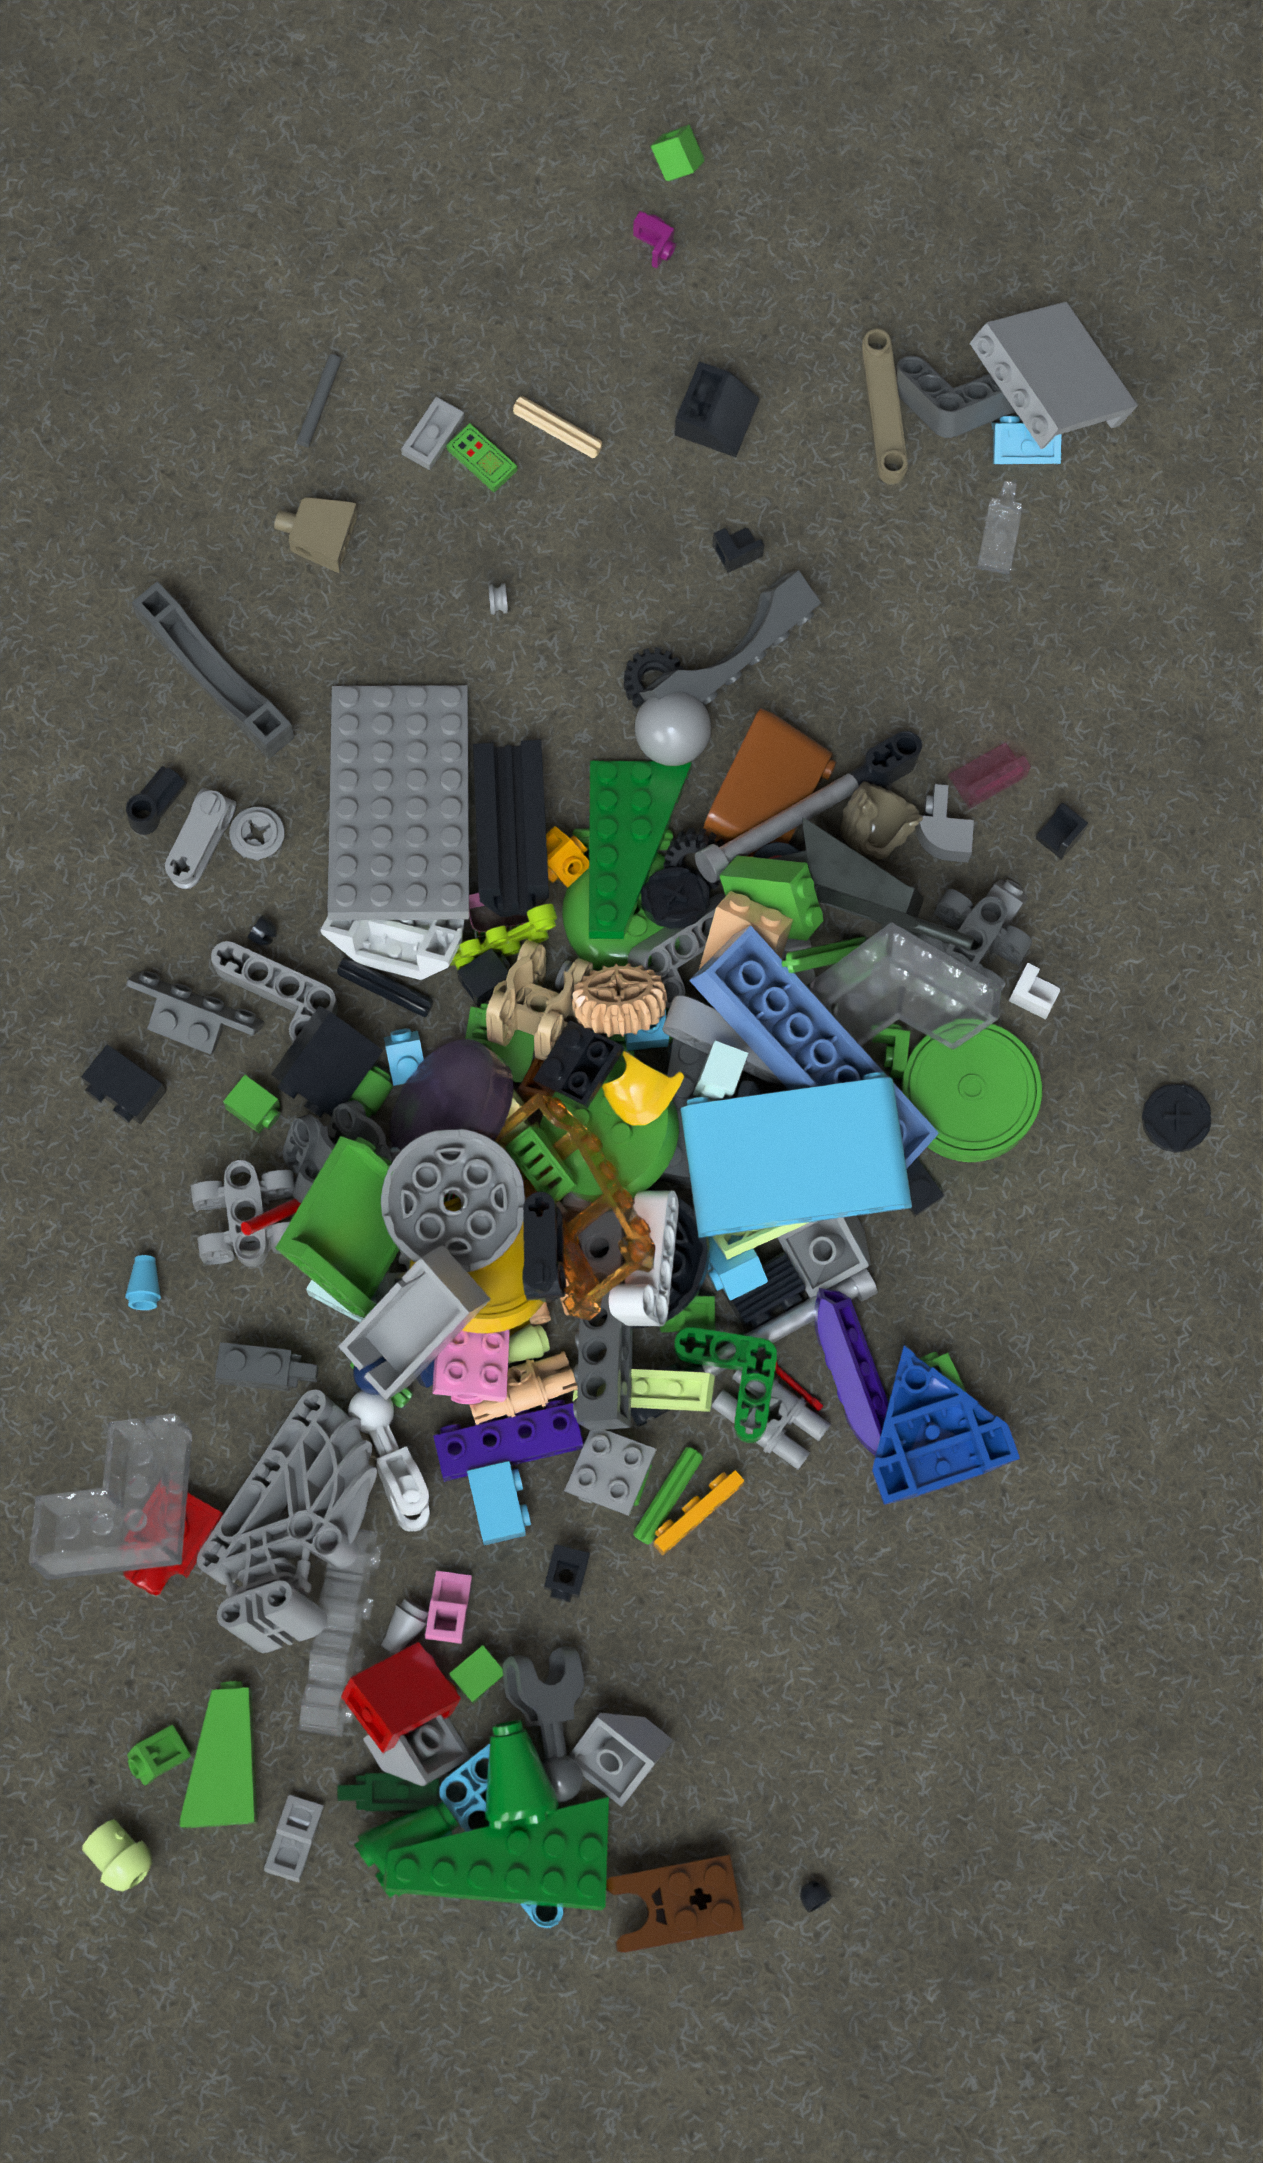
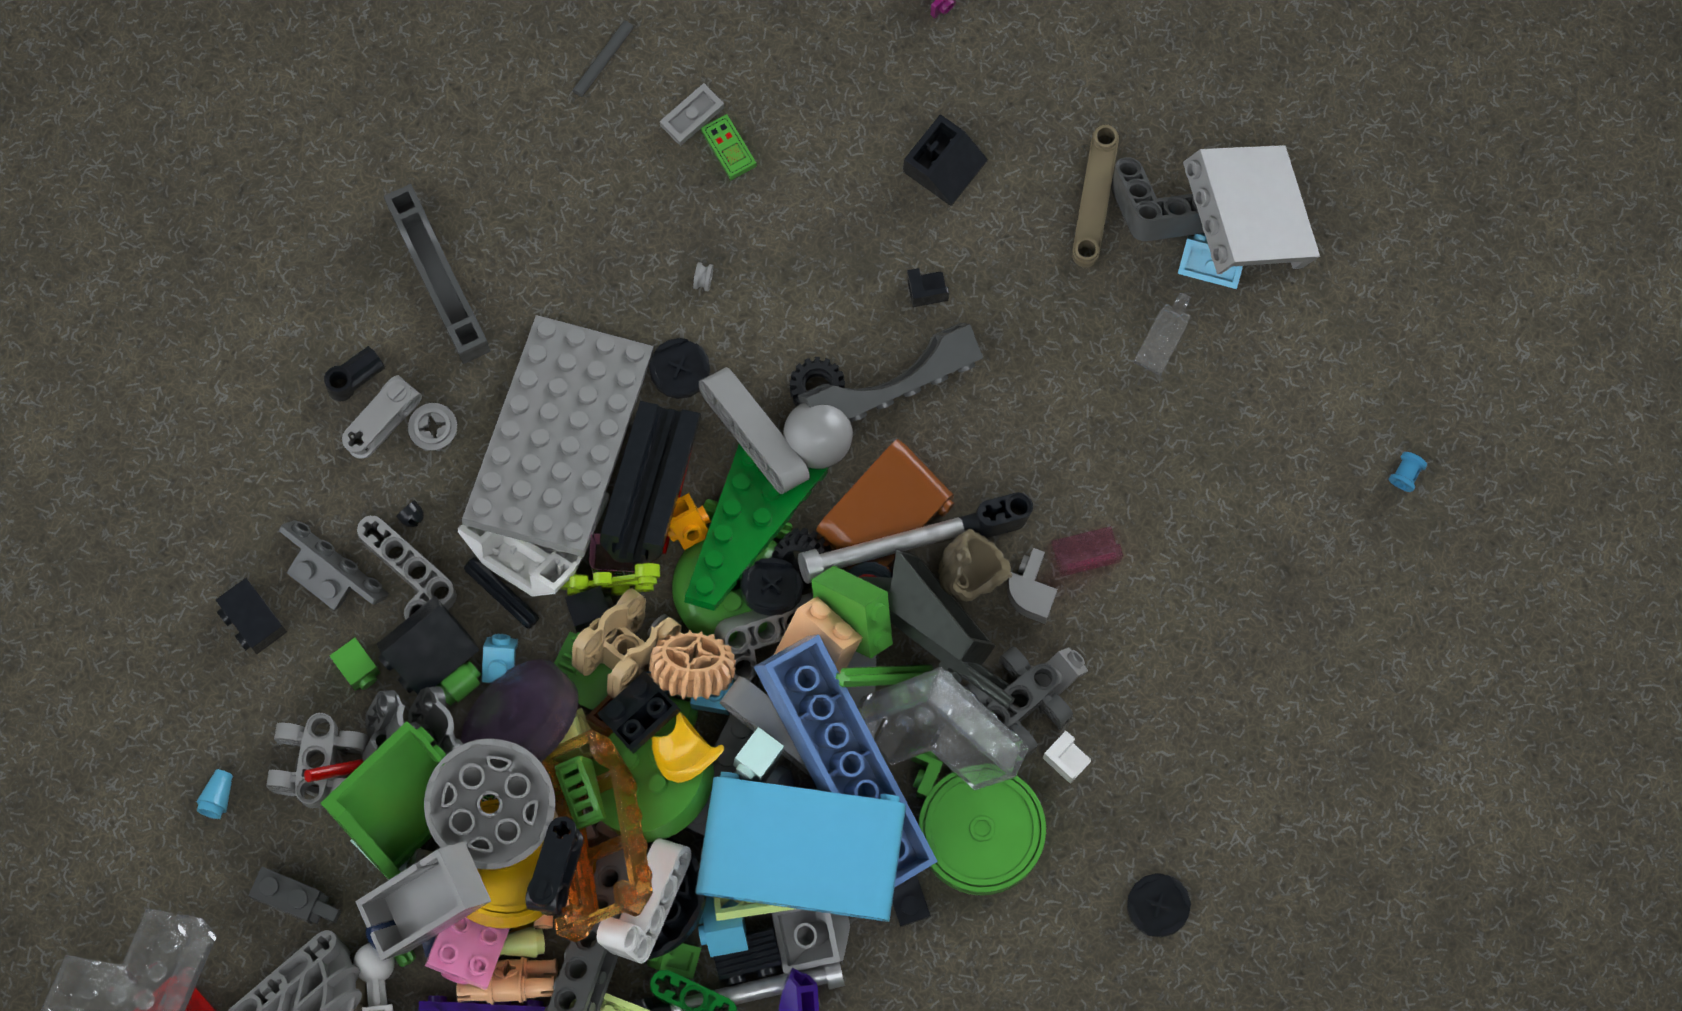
camera: 20 degrees right, 0 degrees up
(320, 530) = (567, 174): dark tan torso -> none
(501, 701) = (679, 368): none -> black tile
(557, 427) = (803, 137): tan axle -> none
(603, 742) = (754, 430): none -> light grey beam
(1062, 831) = (1135, 620): black panel -> none

